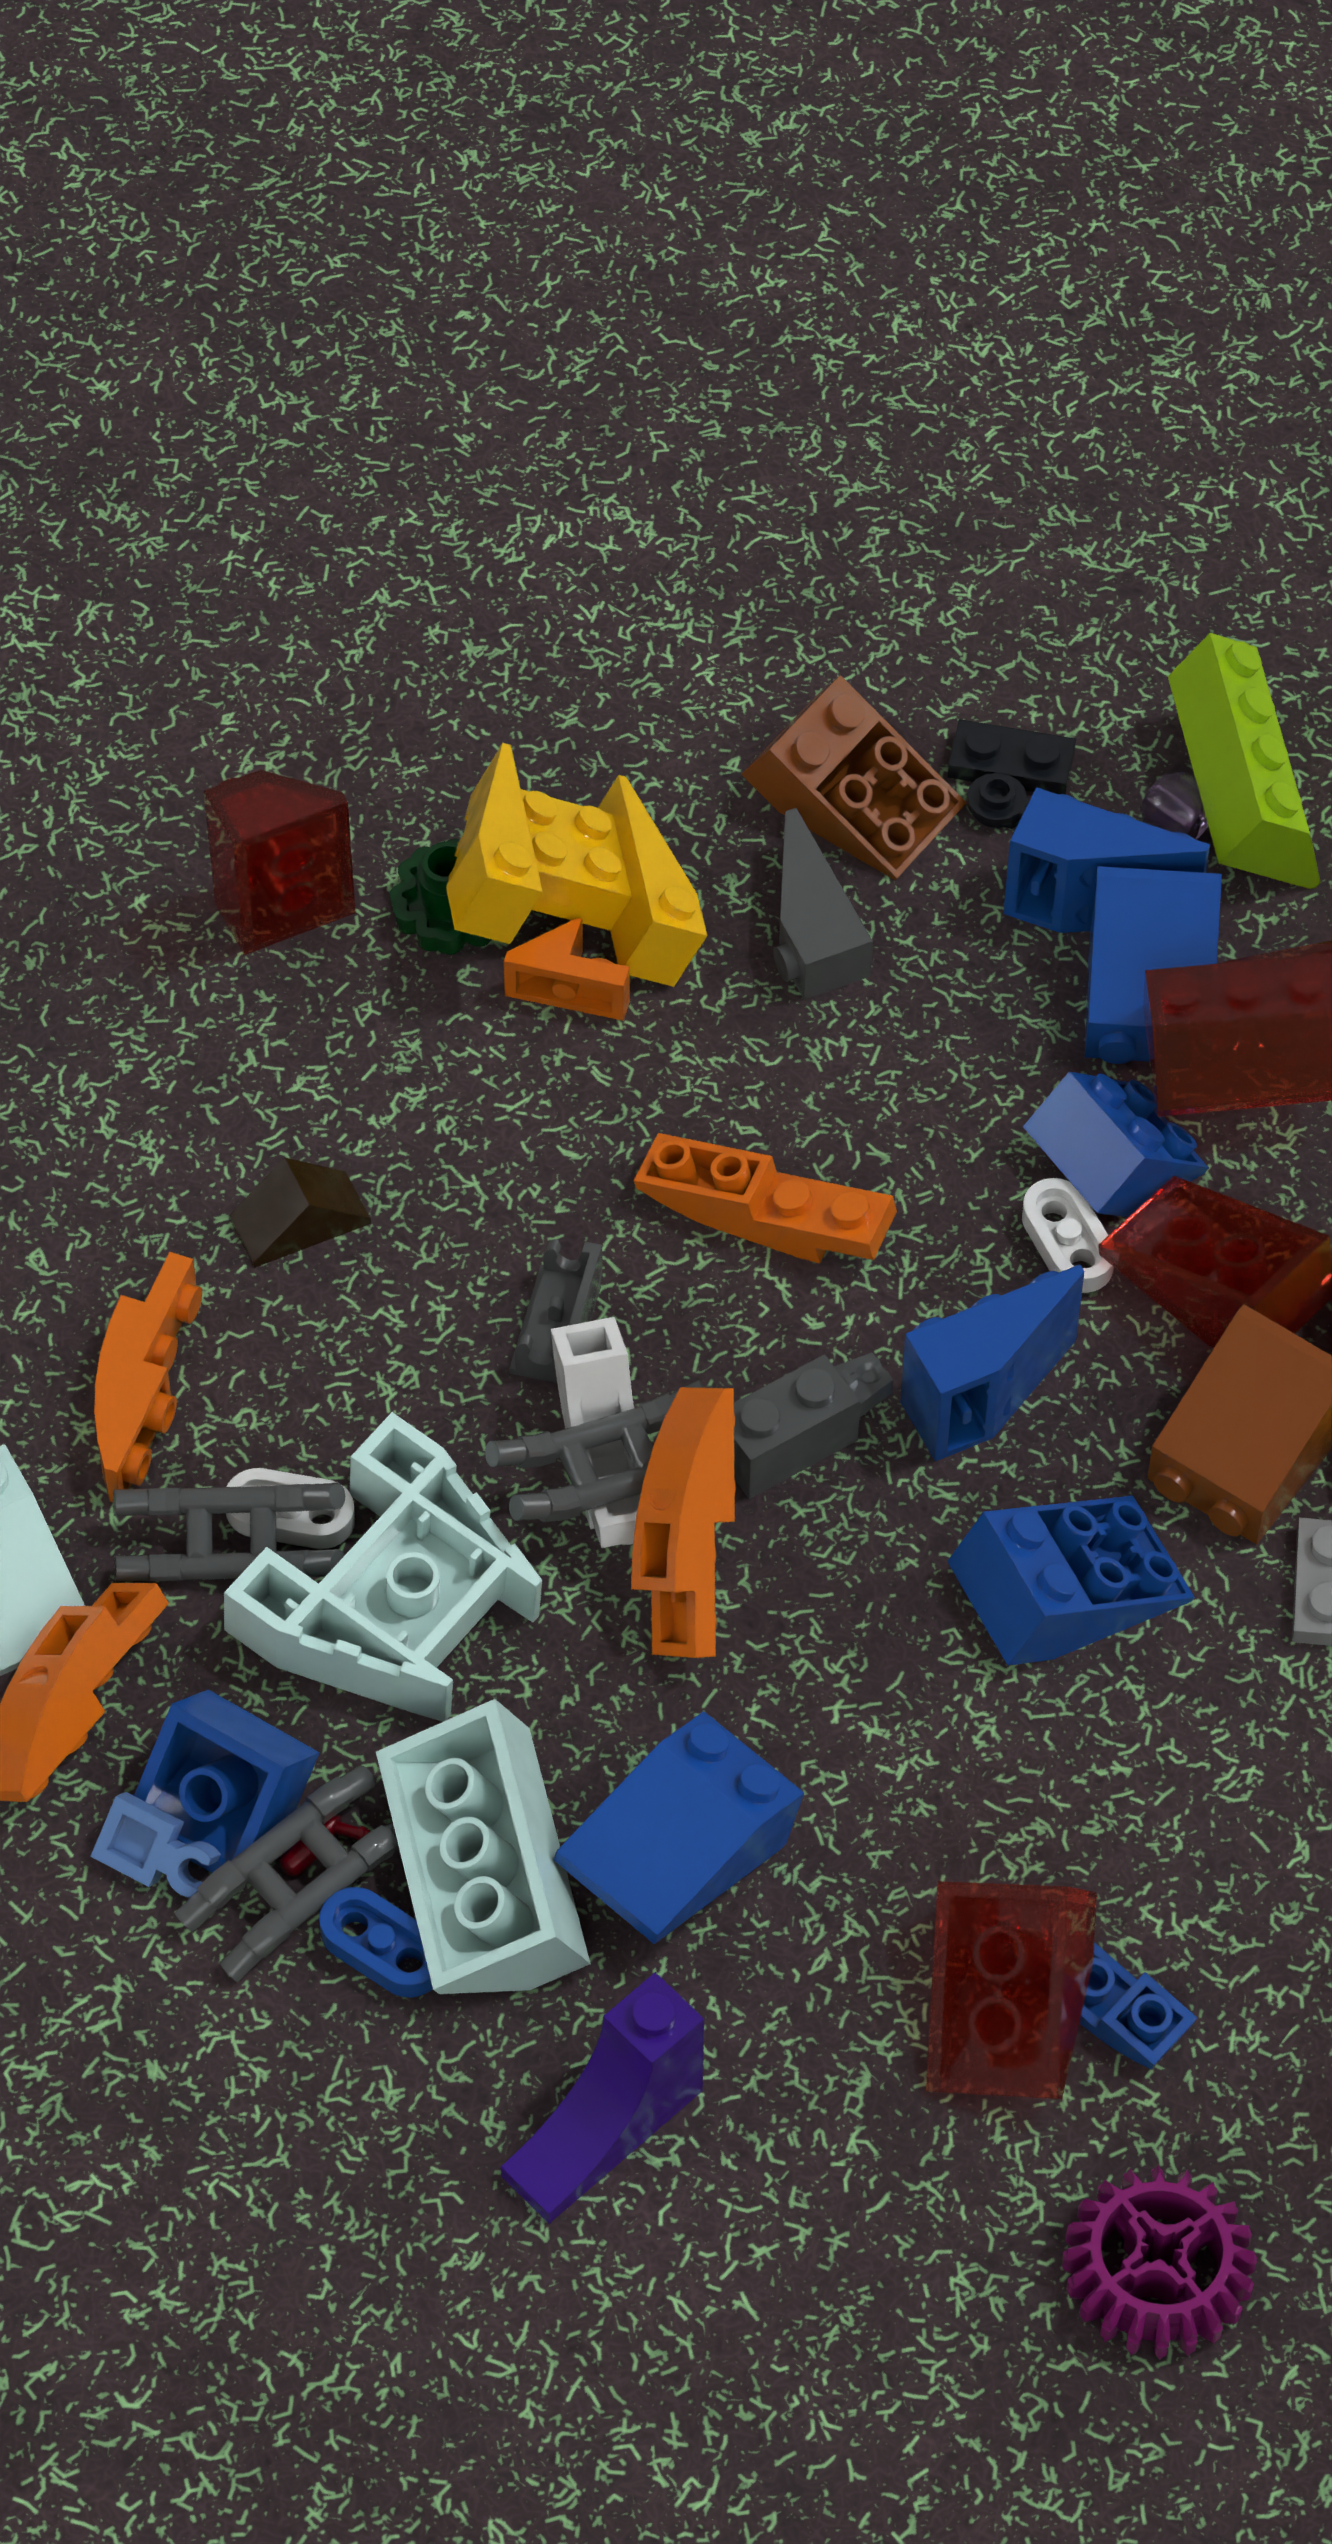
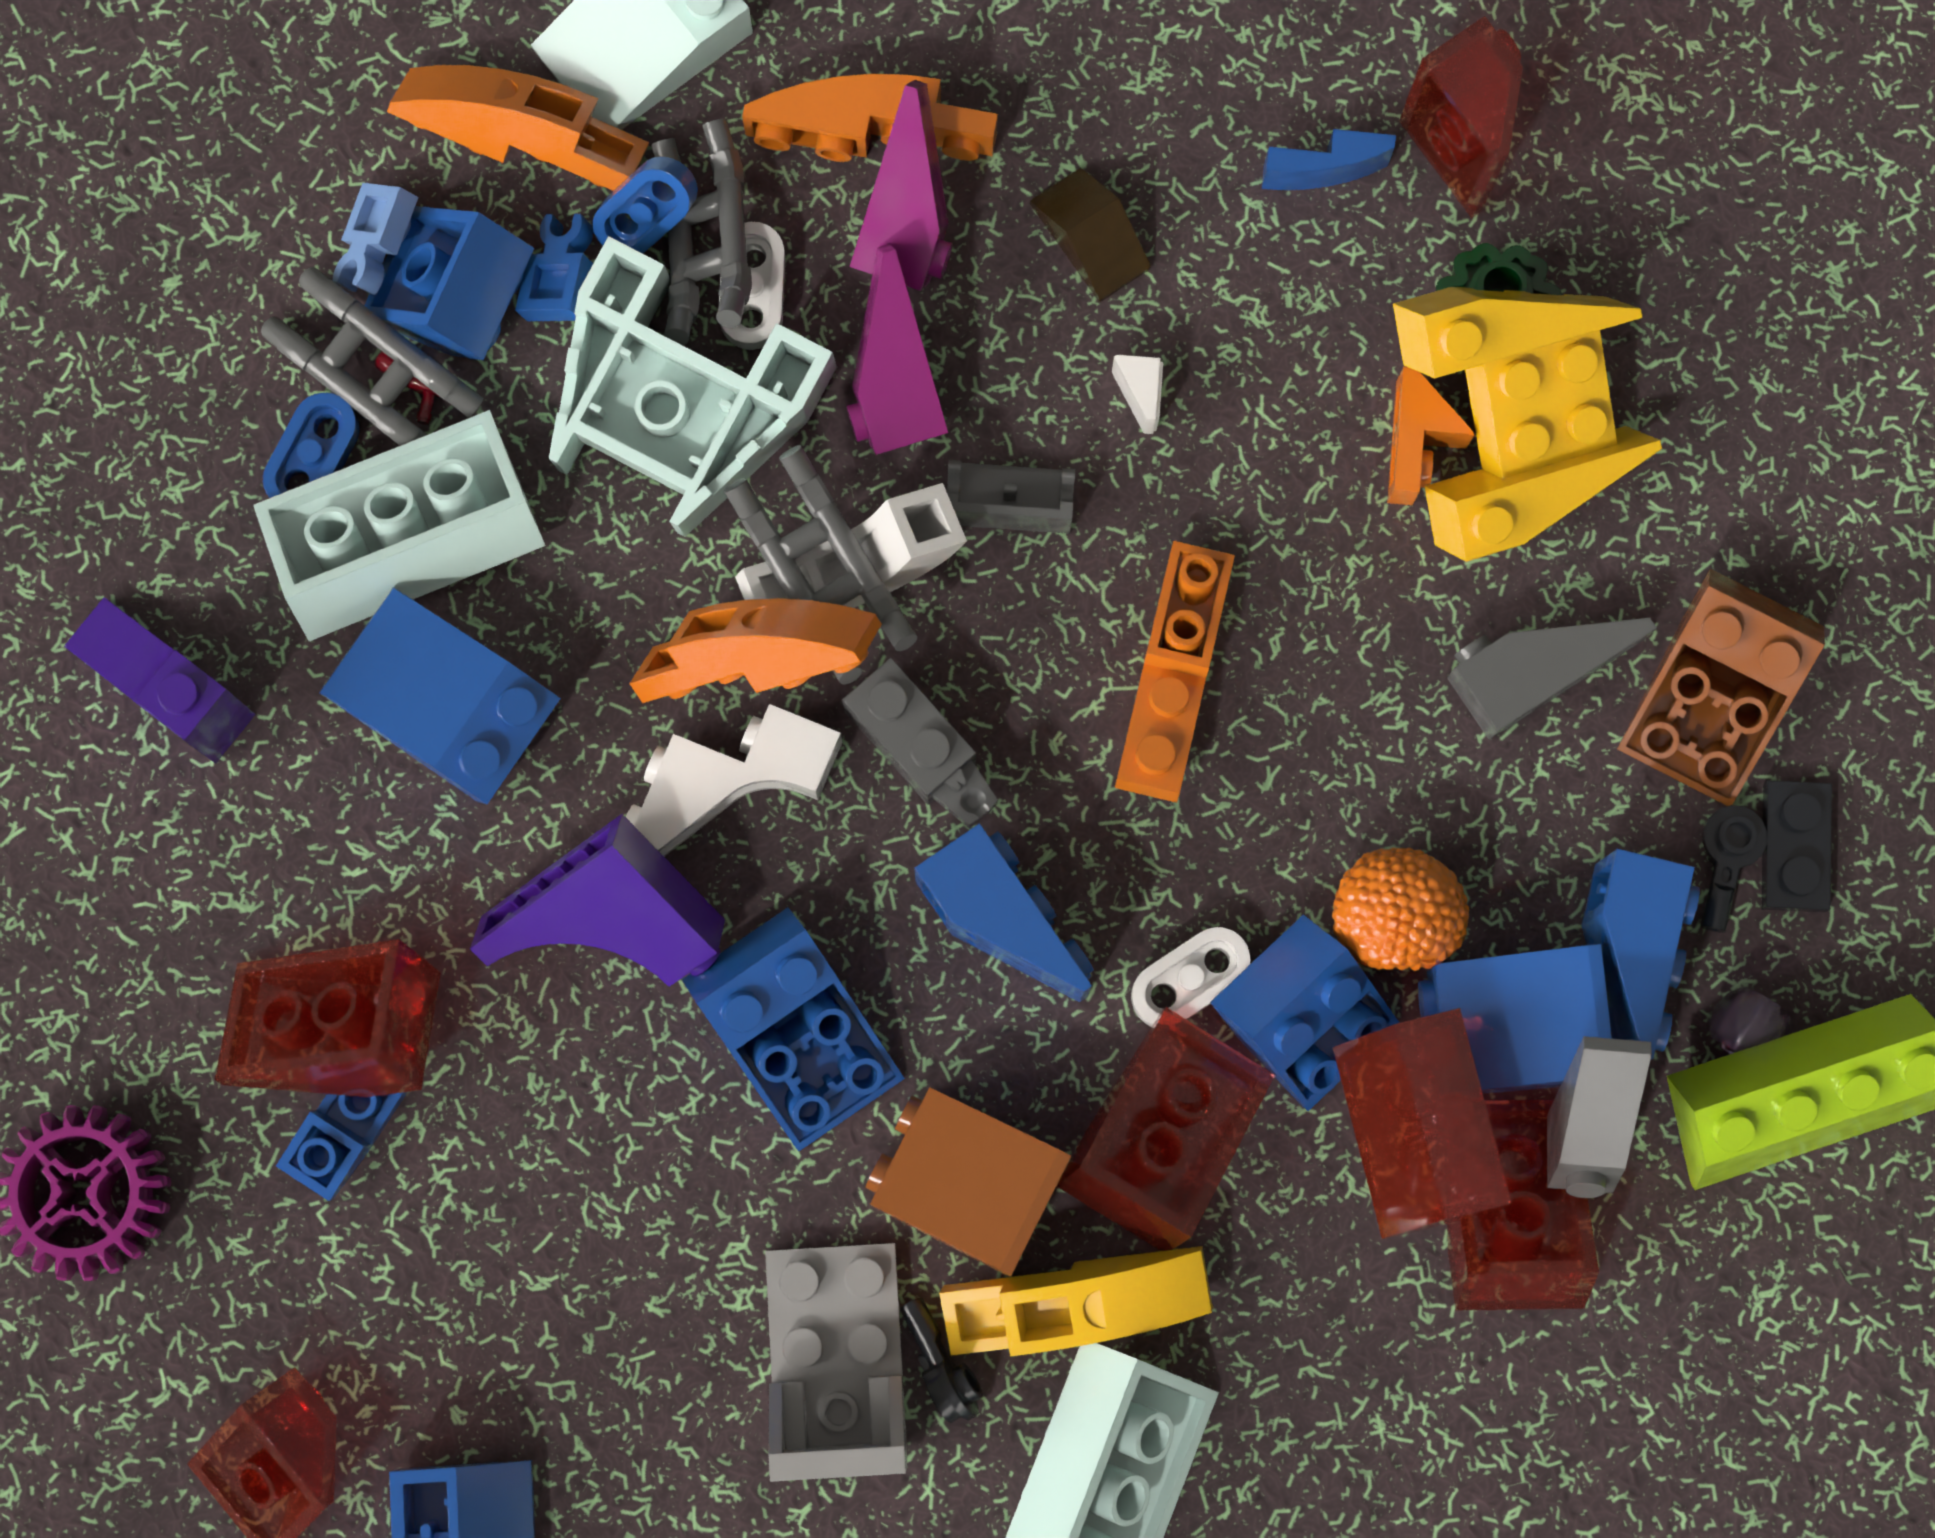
camera: 80 degrees right, 25 degrees up
(188, 1575) = (648, 202): none -> blue plate
(243, 1342) = (908, 197): none -> magenta slope
(243, 1676) = (554, 278): none -> blue plate
(277, 1004) = (1347, 159): none -> blue slope
(425, 1379) = (892, 373): none -> magenta slope
(476, 1187) = (1141, 385): none -> white slope
(807, 1621) = (699, 783): none -> white arch
(915, 1709) = (611, 897): none -> dark purple arch
(1029, 1043) = (1400, 910): none -> orange hair
(1255, 895) = (1596, 1116): none -> slope

